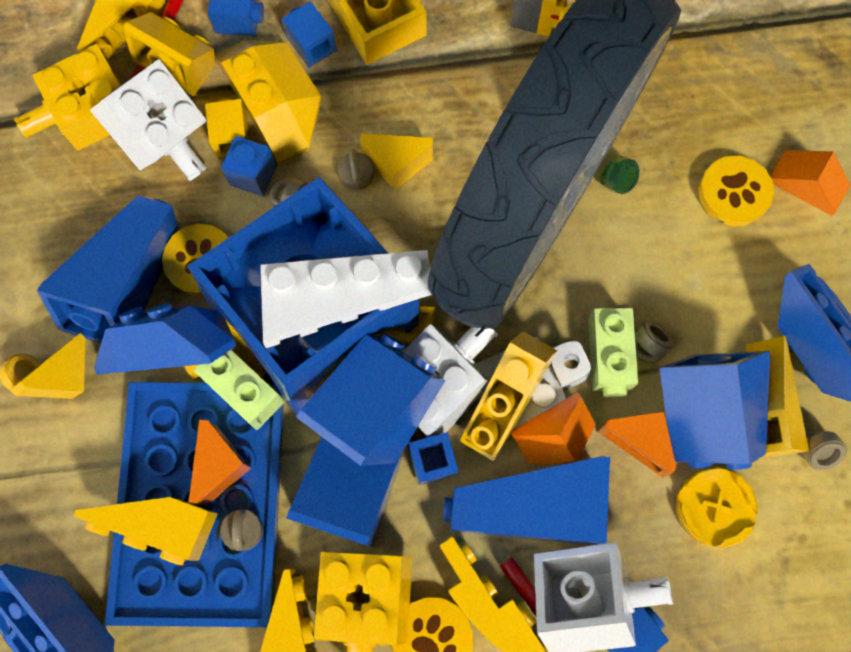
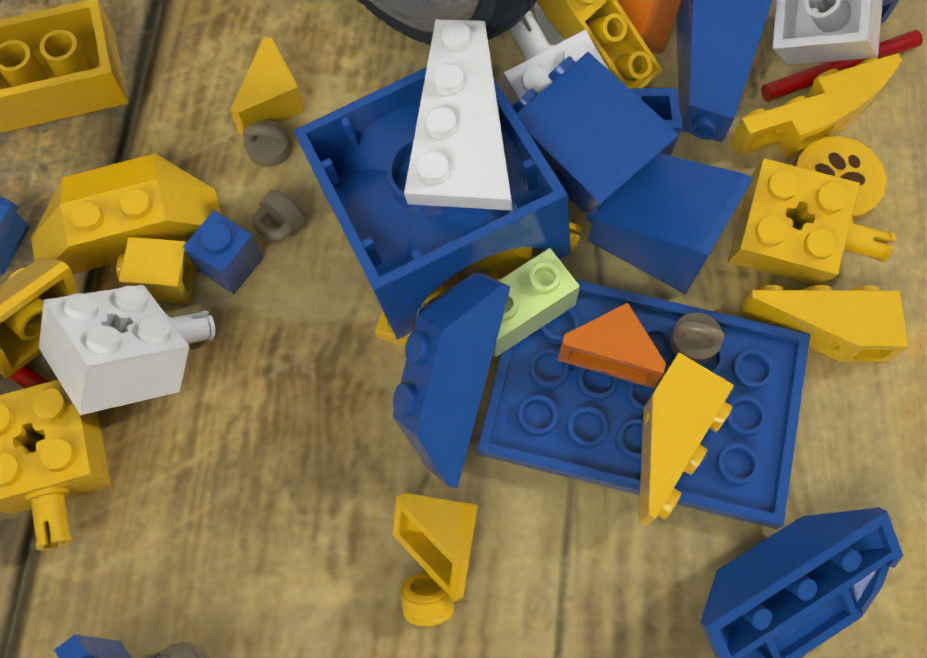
camera: 80 degrees left, 5 degrees down
(111, 270) = (333, 443): blue slope -> none
(184, 249) = (328, 344): yellow tile -> none
(309, 34) = (58, 149): blue brick -> none

